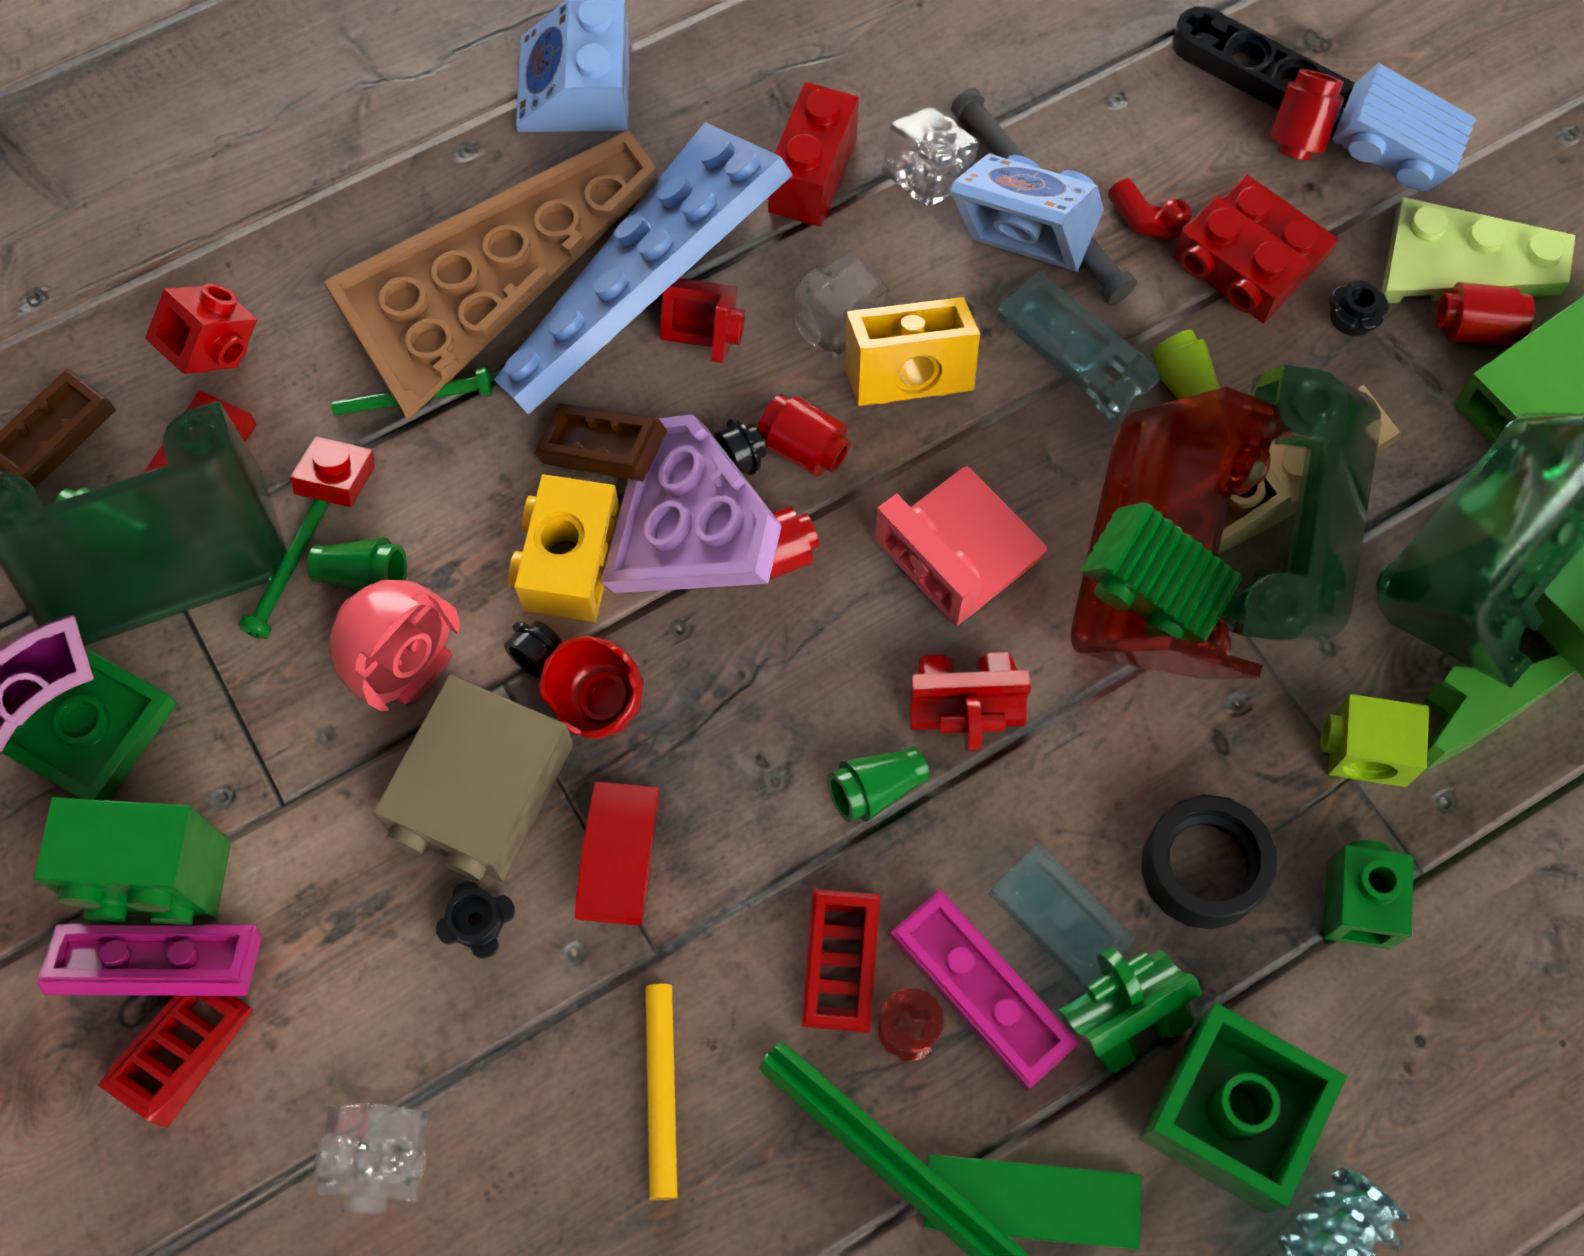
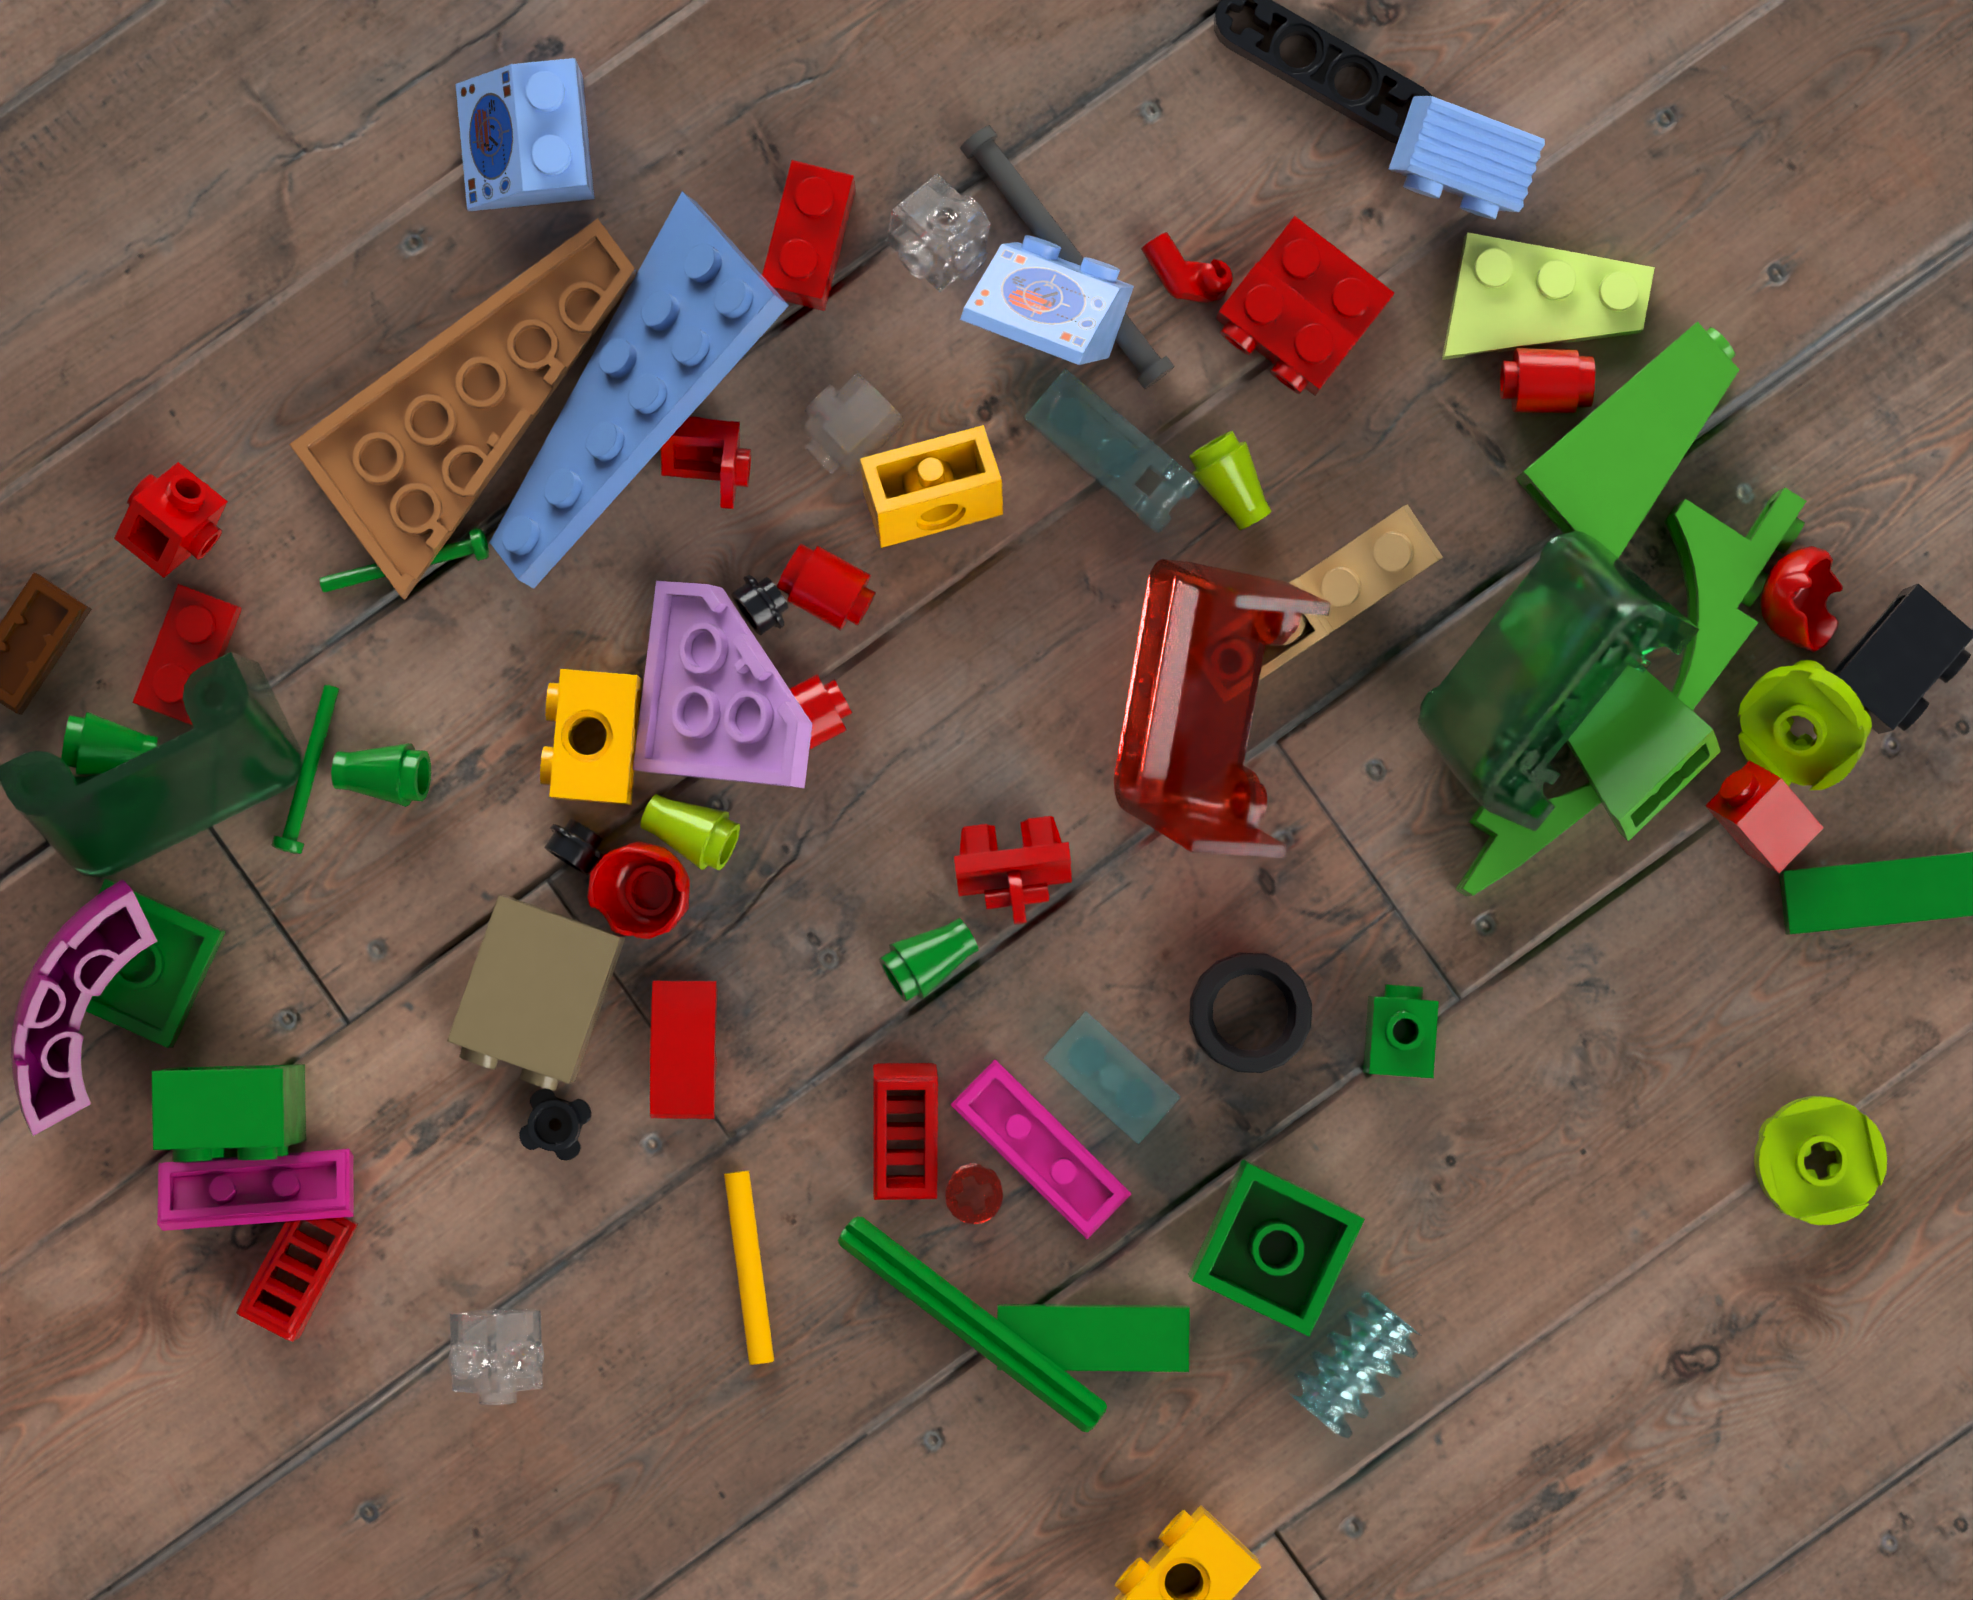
camera: 10 degrees left, 20 degrees up
(332, 471) = (337, 666): red plate -> none
(392, 641) = (431, 860): coral cylinder -> none
(601, 441) = (613, 612): reddish brown plate -> none
(655, 643) = (694, 831): none -> lime cone
(958, 543) = (997, 694): coral bracket -> none
(1129, 1000) = (1176, 1157): green hips -> none
(1160, 574) = (1191, 748): green brick -> none
(1307, 114) = (1360, 142): red brick -> none
(1341, 442) = (1356, 589): clear green windscreen -> none
(1352, 318) = (1400, 385): black plate -> none
(1376, 740) = (1412, 877): lime brick -> none

